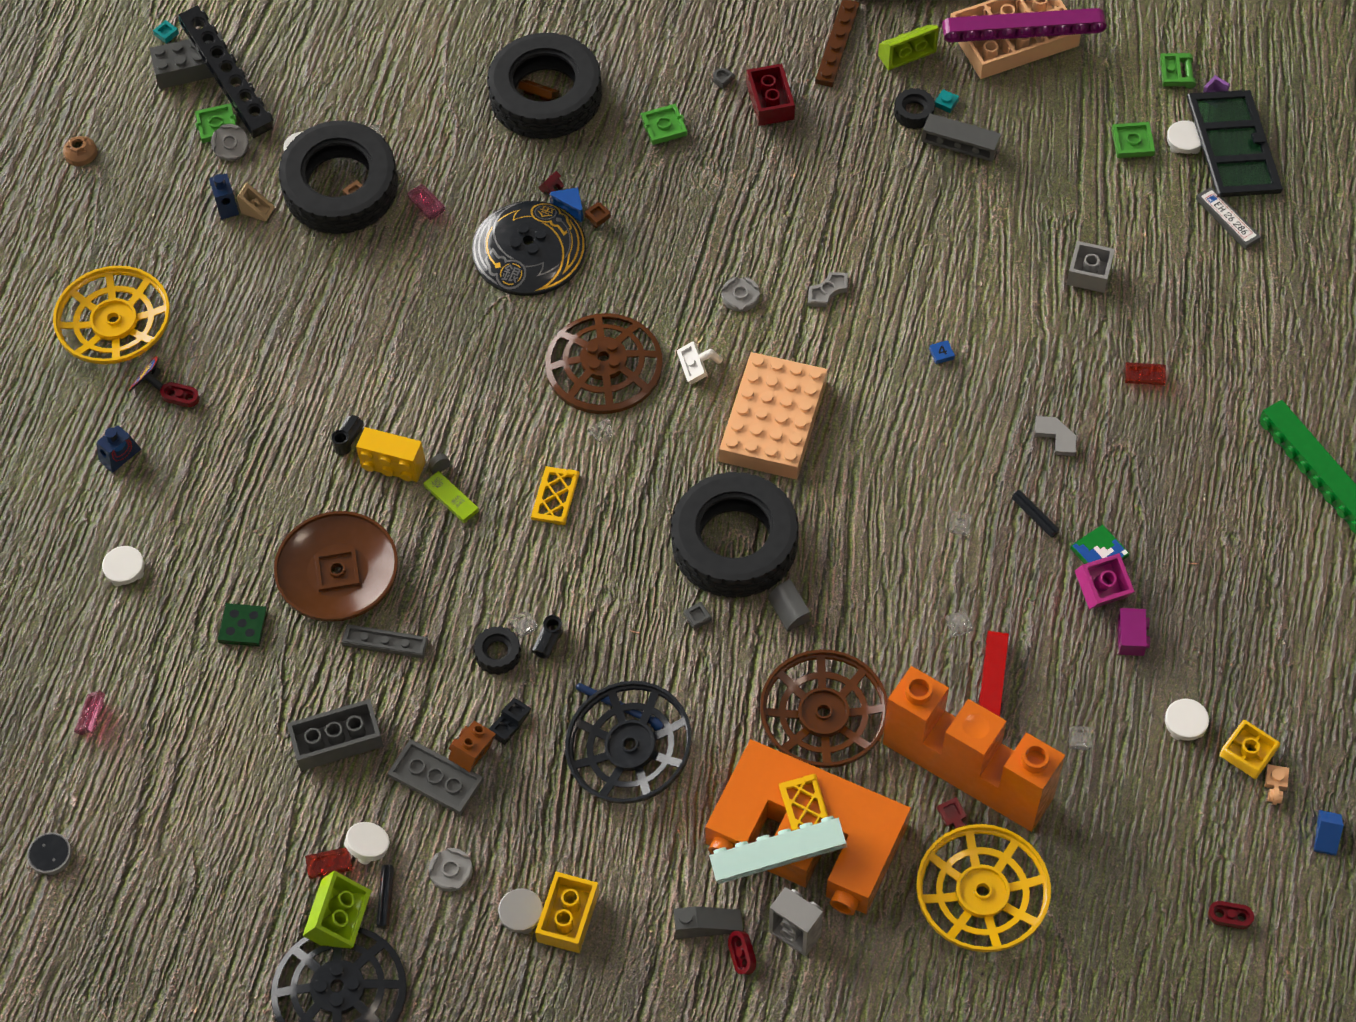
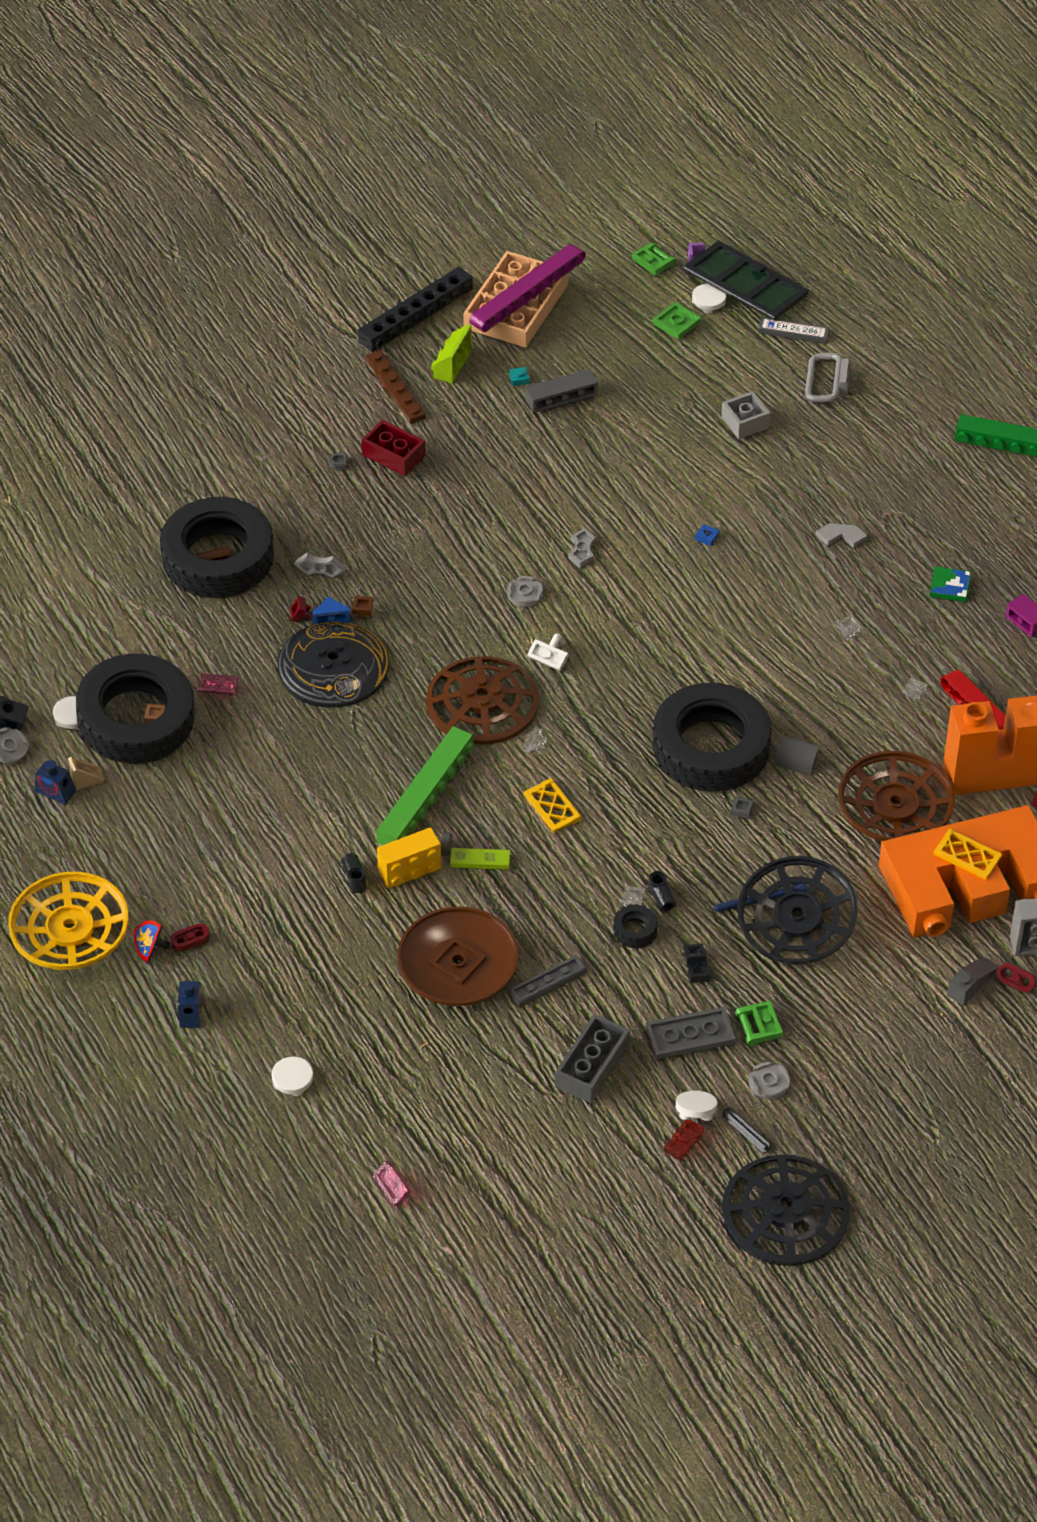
camera: 45 degrees left, 10 degrees down
(49, 853) = (476, 1293): black tile -> none
(242, 624) = (431, 1047): dark green tile -> none
(337, 911) = (730, 1160): lime slope -> none
(471, 745) = (696, 991): dark orange brick -> none
(474, 404) = (426, 786): none -> bright green brick
(502, 816) = (765, 1020): none -> bright green plate
(520, 910) = (847, 1066): light grey tile -> none
(567, 912) = (882, 1039): yellow brick -> none
(604, 156) = (311, 564): none -> light grey tile
(664, 124) = (335, 518): bright green plate -> none
(773, 415) = (645, 648): light nougat brick -> none
(777, 850) = (982, 888): light aqua brick -> none
(913, 96) = (504, 384): black tyre -> none
(1035, 513) = (885, 590): black axle -> none
(1104, 581) = (979, 595): dark pink brick -> none
(1145, 373) = (854, 458): clear red plate -> none
(1217, 292) = (841, 377): none -> light grey bar

